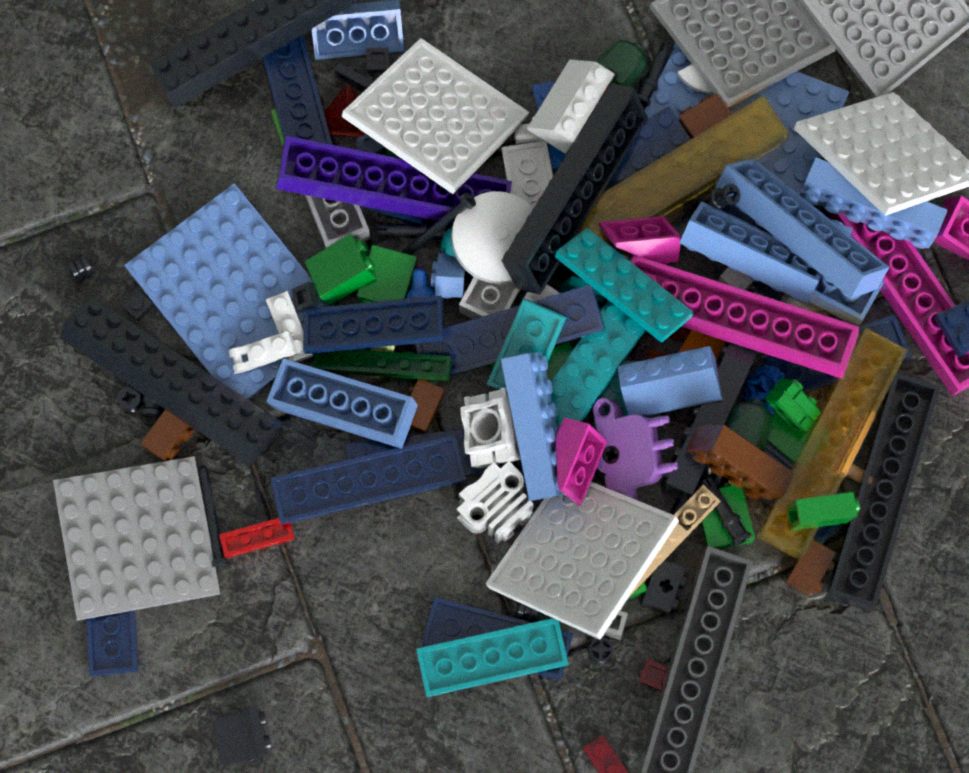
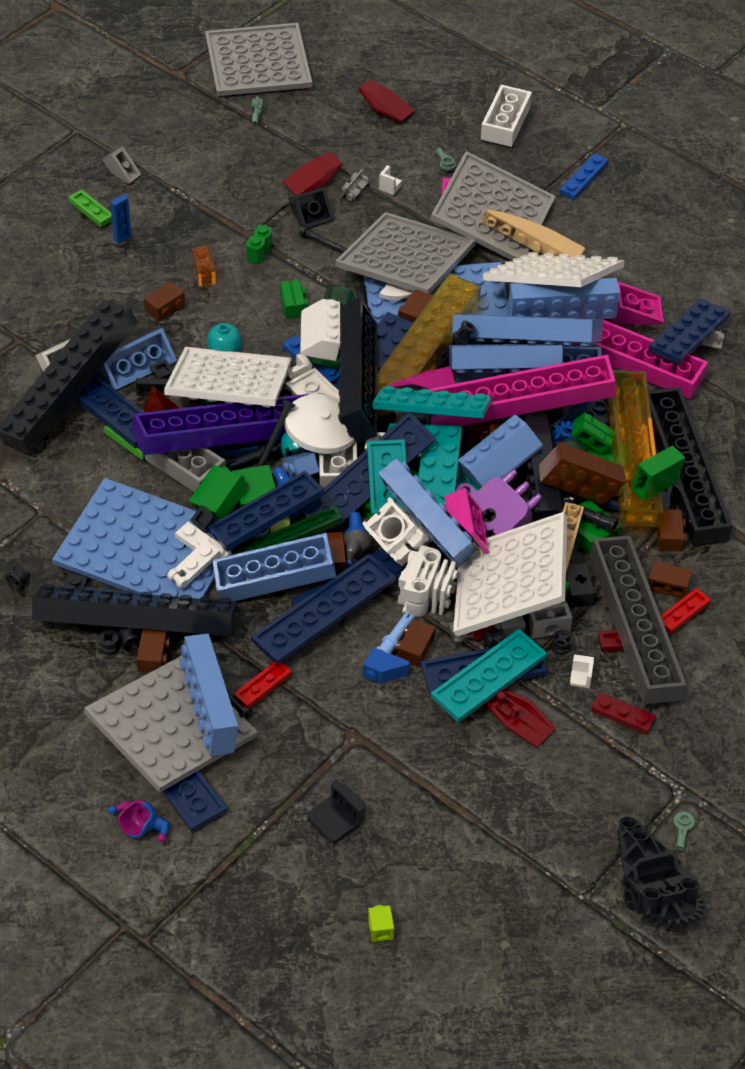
camera: 30 degrees left, 25 degrees down
(46, 637) = (140, 817): none -> magenta piece
(182, 532) = (208, 695): none -> medium blue brick
(391, 582) = (384, 667): none -> blue slope
(418, 555) = (390, 641): none -> light blue pin
(444, 569) = (416, 642): none -> reddish brown brick
(453, 400) = (356, 538): none -> dark grey piece
(470, 49) = (224, 338): none -> teal cylinder
(501, 720) = (521, 717): none -> dark red piece
(579, 27) = (292, 298): none -> green brick
(598, 699) = (581, 671): none -> white panel
(758, 680) = (684, 610): none -> red plate
(768, 632) = (669, 579): none -> reddish brown brick
(911, 78) = (532, 234): none -> tan slope

